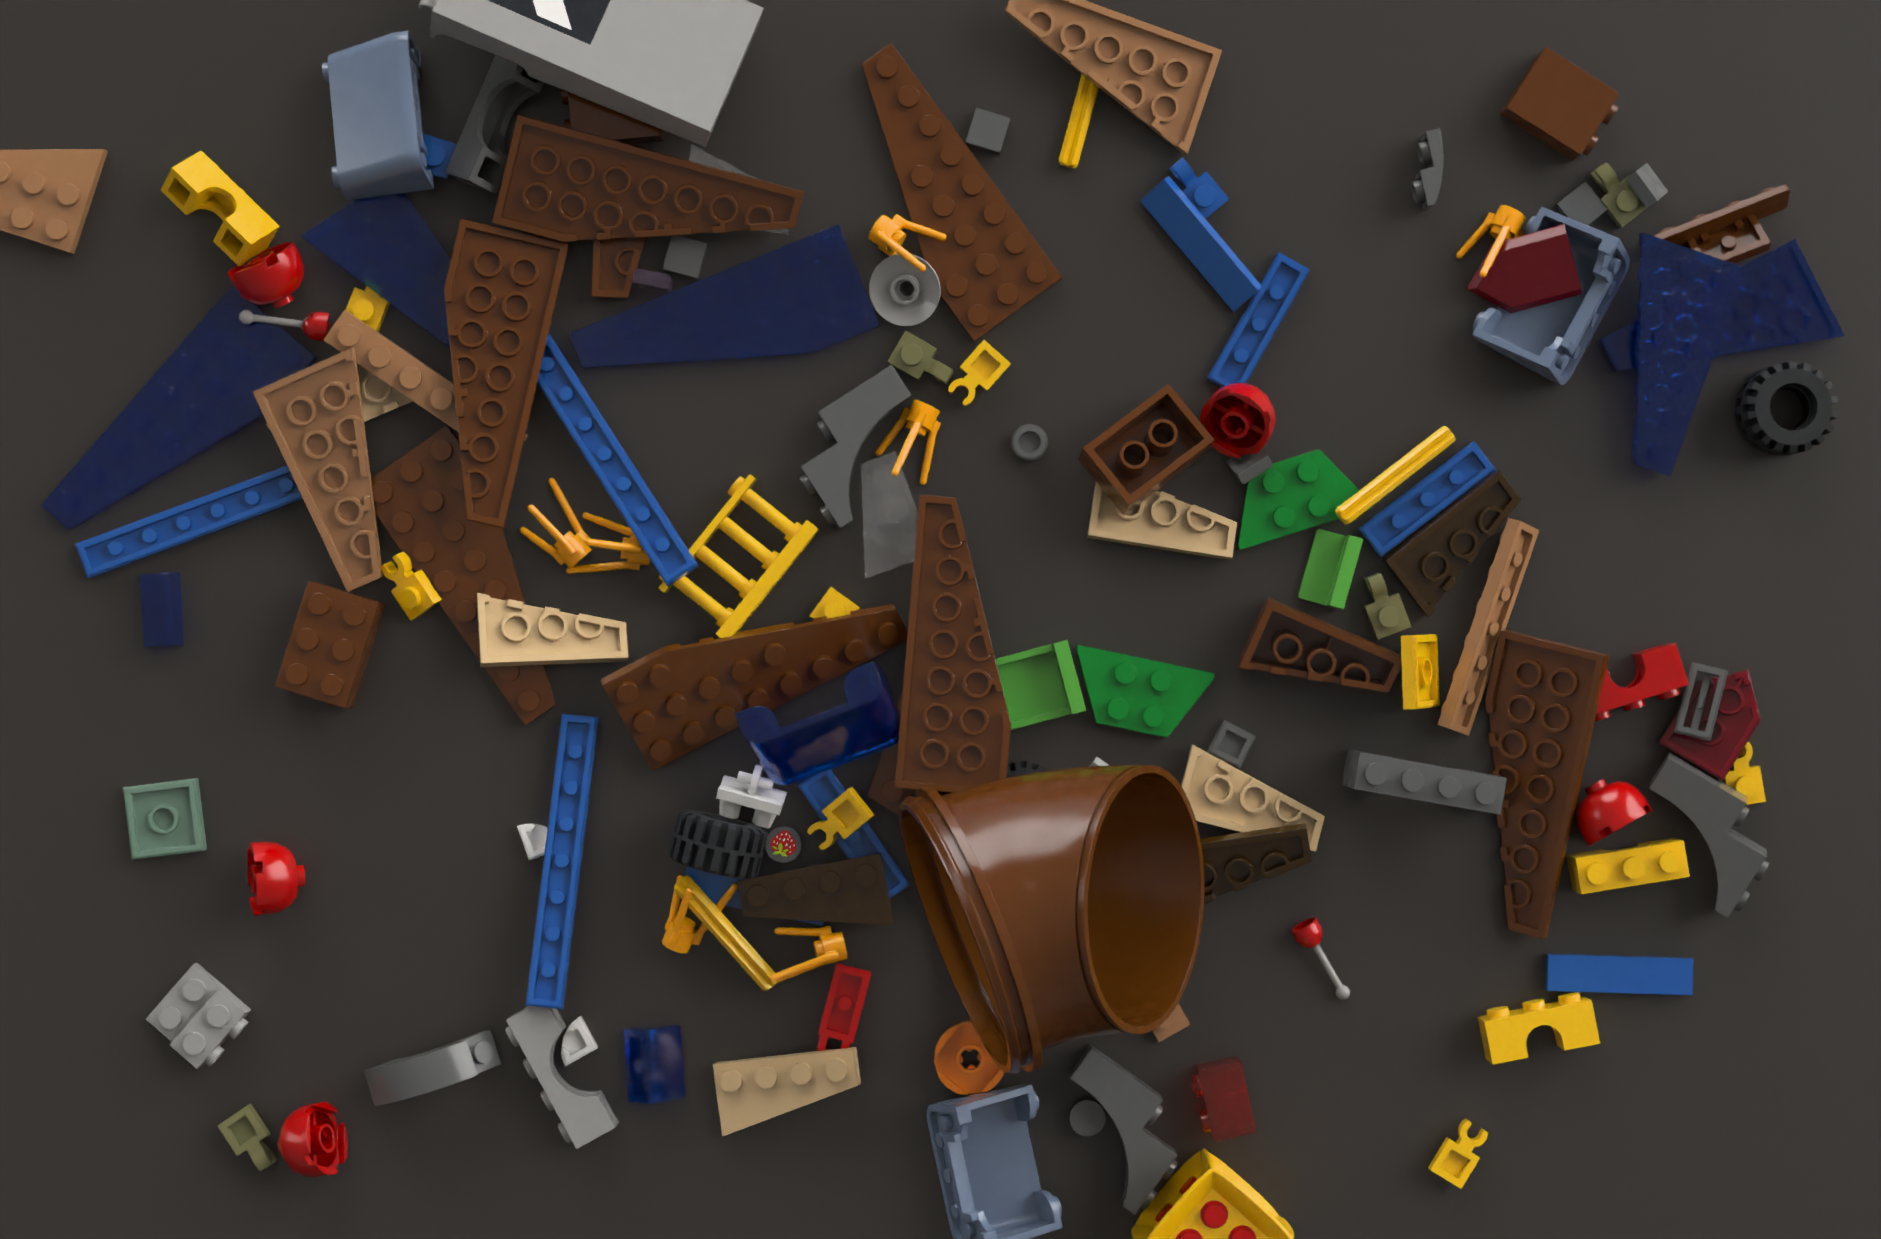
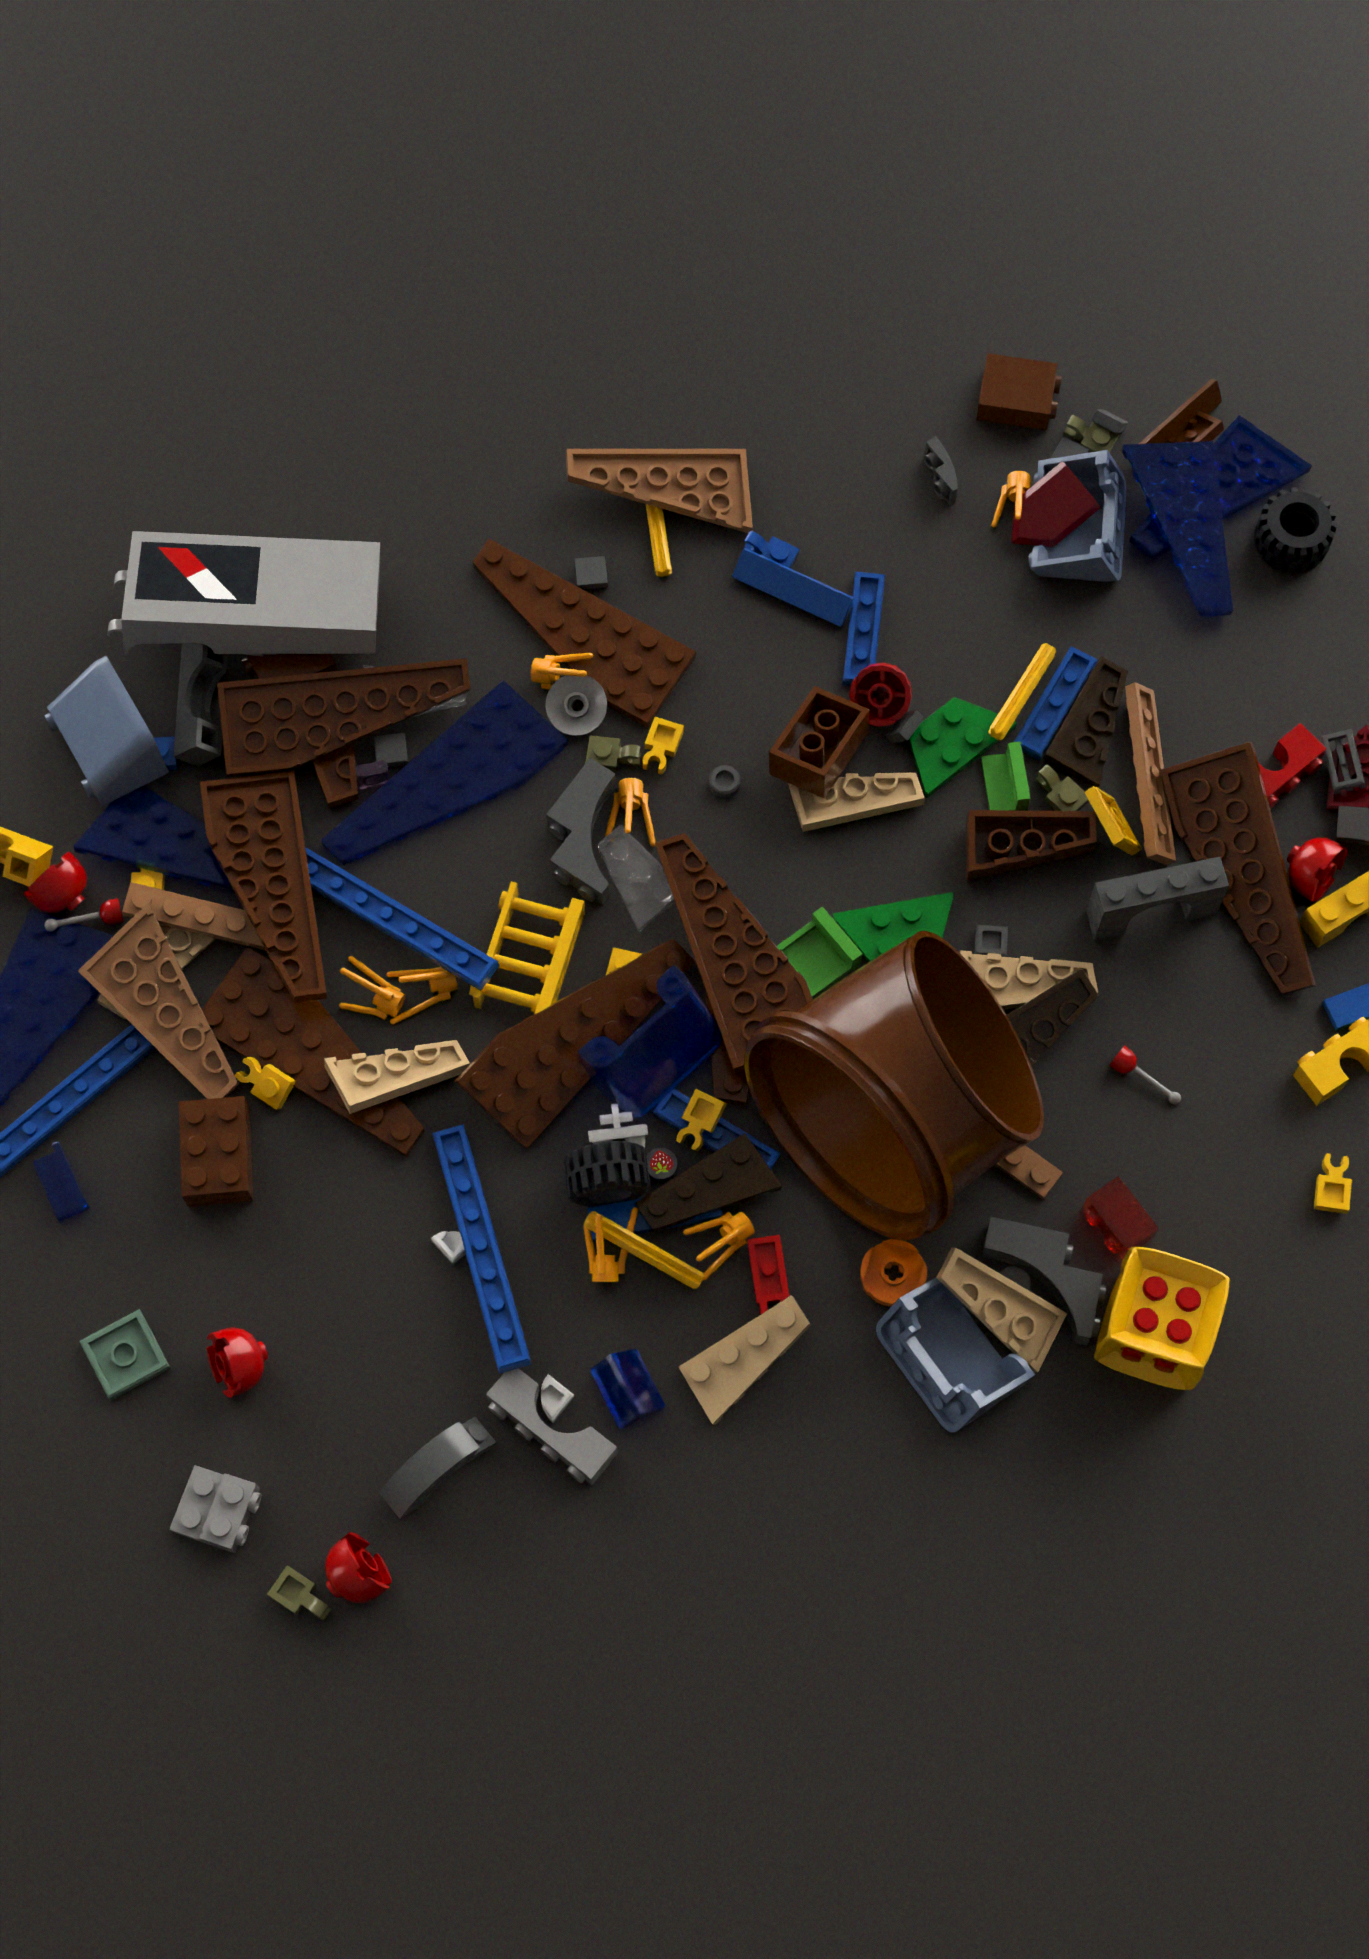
camera: 25 degrees left, 20 degrees down
(1065, 1148) = (1007, 1309): none -> tan wing

